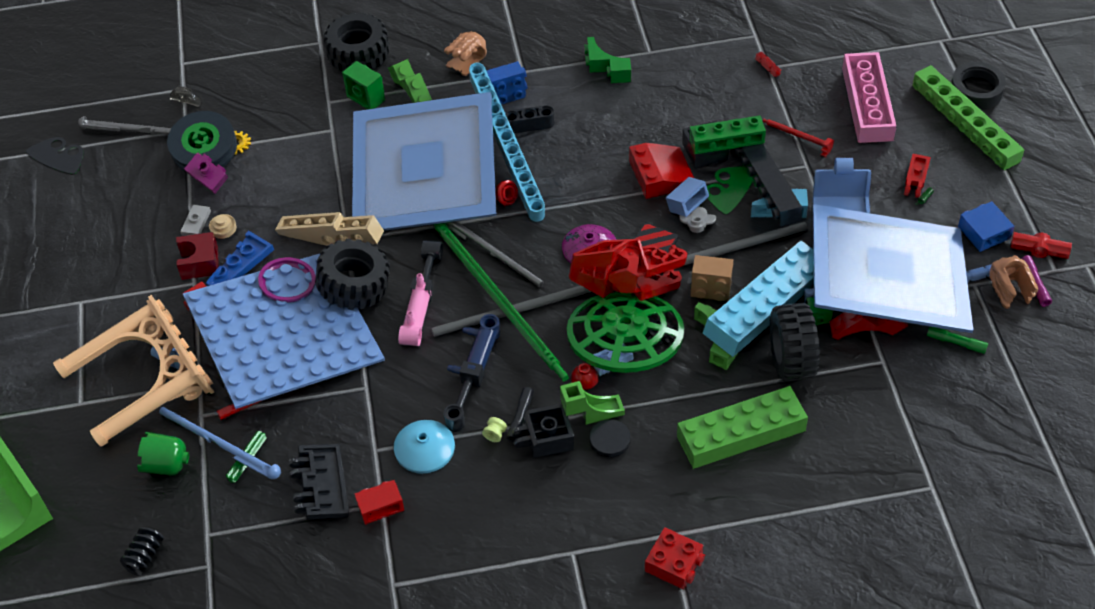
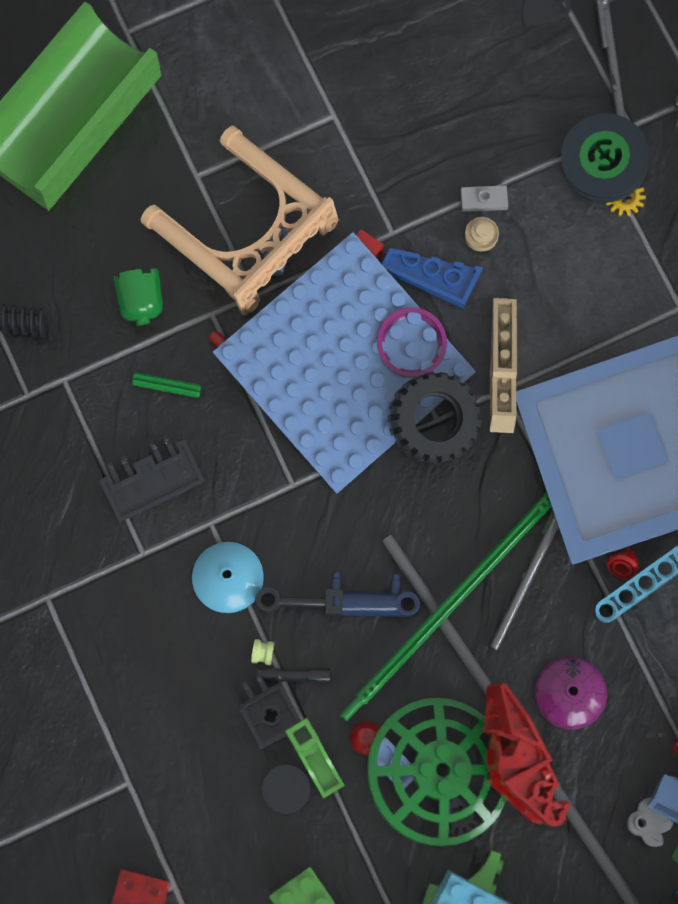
camera: 70 degrees right, 25 degrees up
(202, 252) = (429, 233): dark red piece -> none
(206, 172) = (552, 184): magenta brick -> none
(271, 472) = (158, 381): medium blue bar -> none
(379, 501) = (138, 551): red piece -> none
(421, 294) = (439, 507): bright pink piece -> none
(655, 236) = (595, 773): tile -> none
(711, 278) = (542, 863): medium nougat brick -> none

